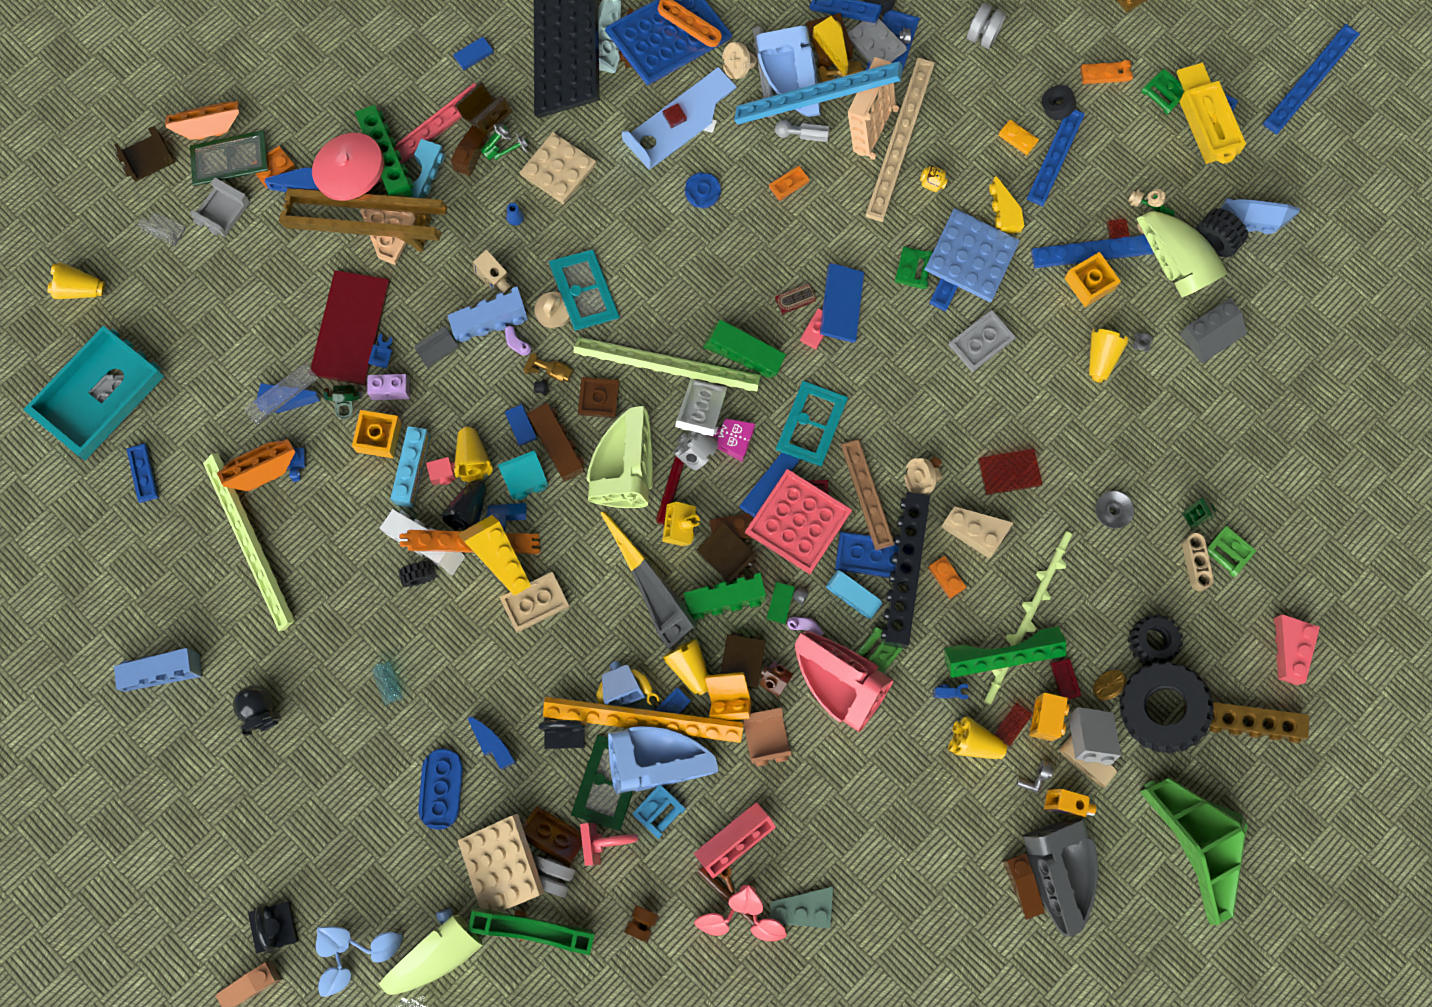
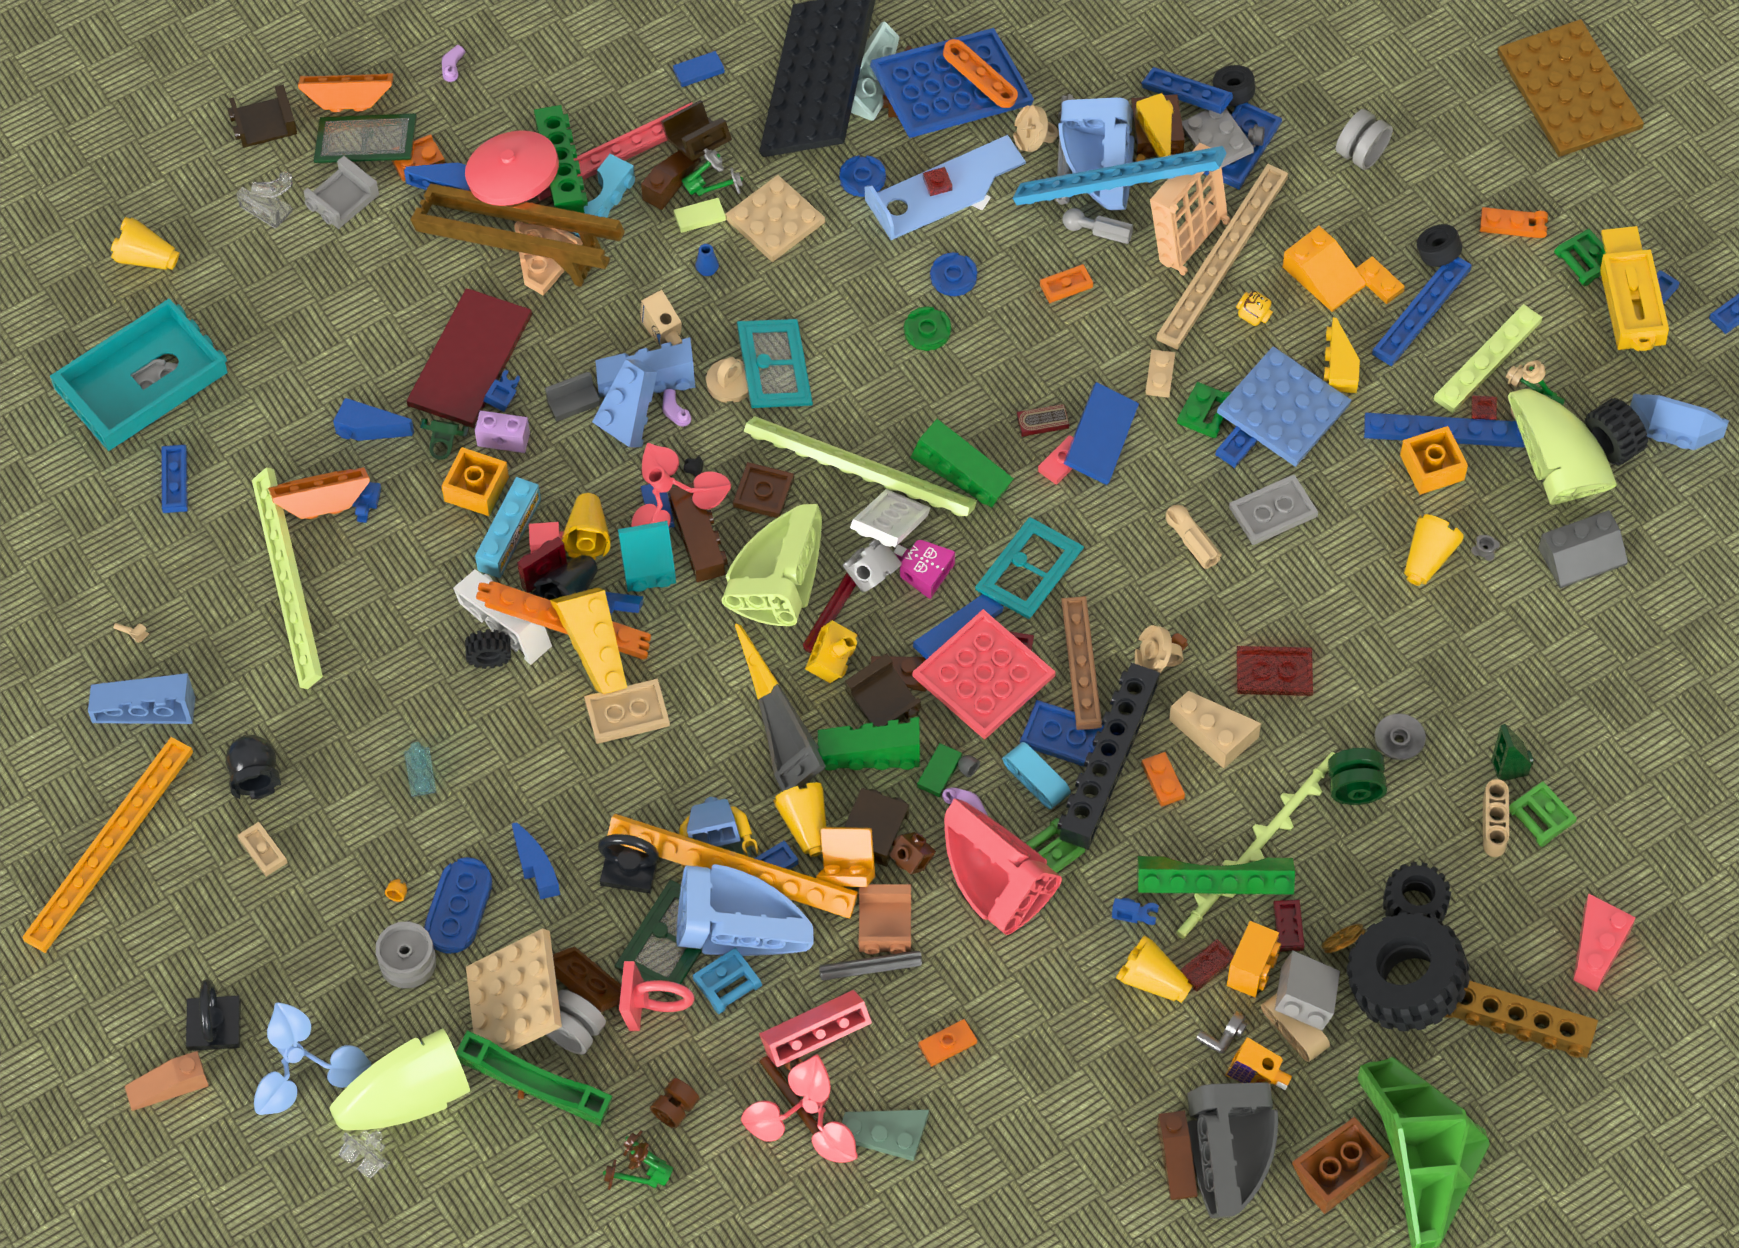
camera: 15 degrees right, 15 degrees down
(142, 609) = (138, 633): none -> tan hand
(157, 796) = (107, 845): none -> light orange plate
(166, 213) = (273, 188): none -> clear arm
(279, 774) = (262, 849): none -> tan plate
(280, 82) = (449, 63): none -> lavender arm
(280, 393) = (367, 413): clear tile -> none
(390, 787) = (396, 891): none -> light orange hinge
(398, 839) = (405, 955): none -> light grey wheel
(439, 499) = (541, 562): none -> dark red plate
(480, 348) = (627, 403): none -> medium blue wedge
(500, 175) = (699, 215): none -> yellowish green tile
(514, 391) = (657, 467): none -> coral plant
(554, 369) = (714, 449): pearl gold piece -> none
(616, 119) = (861, 172): none -> blue tile
(640, 982) = (658, 1169): none -> plant
(692, 239) = (927, 328): none -> green tile
(763, 775) = (870, 965): none -> dark grey axle
(834, 827) = (947, 1042): none -> orange plate
(874, 244) = (1160, 373): none -> tan plate
(927, 374) = (1193, 536): none -> tan piece
(977, 136) = (1323, 268): none -> light orange slope
(1093, 551) = (1357, 776): none -> dark green wheel
(1111, 187) = (1488, 358): none -> yellowish green plate
(1148, 872) = (1340, 1164): none -> dark orange slope

